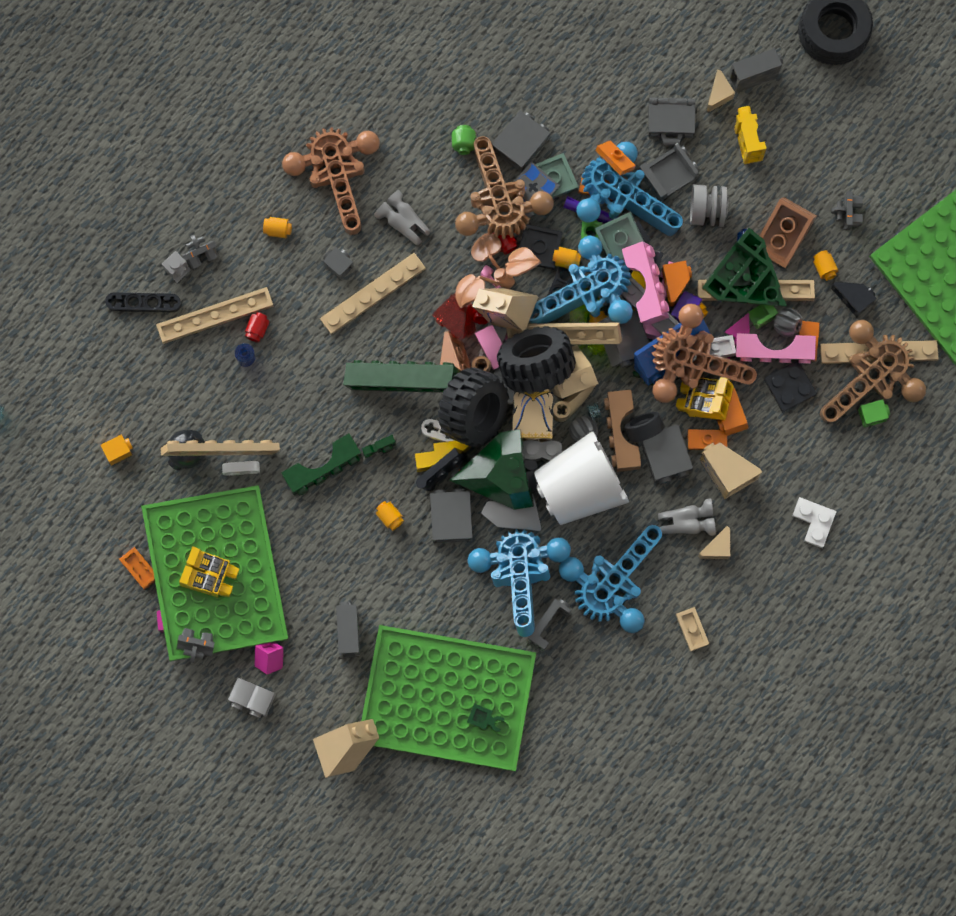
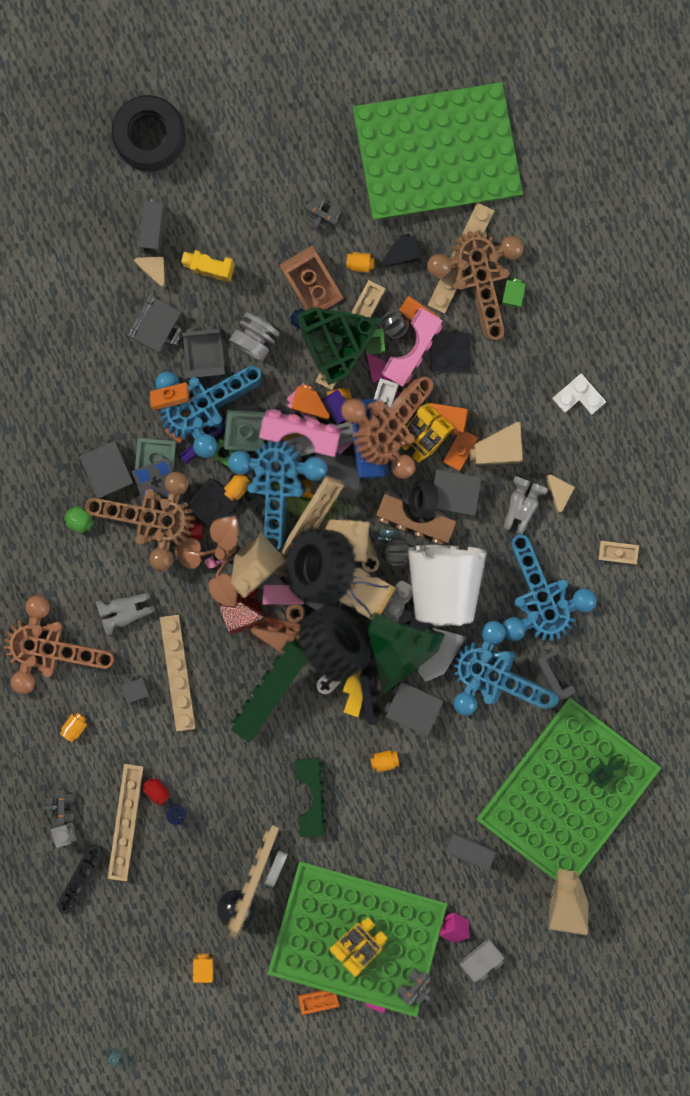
camera: 60 degrees left, 10 degrees up
(384, 445) = (321, 732): dark green plate -> none

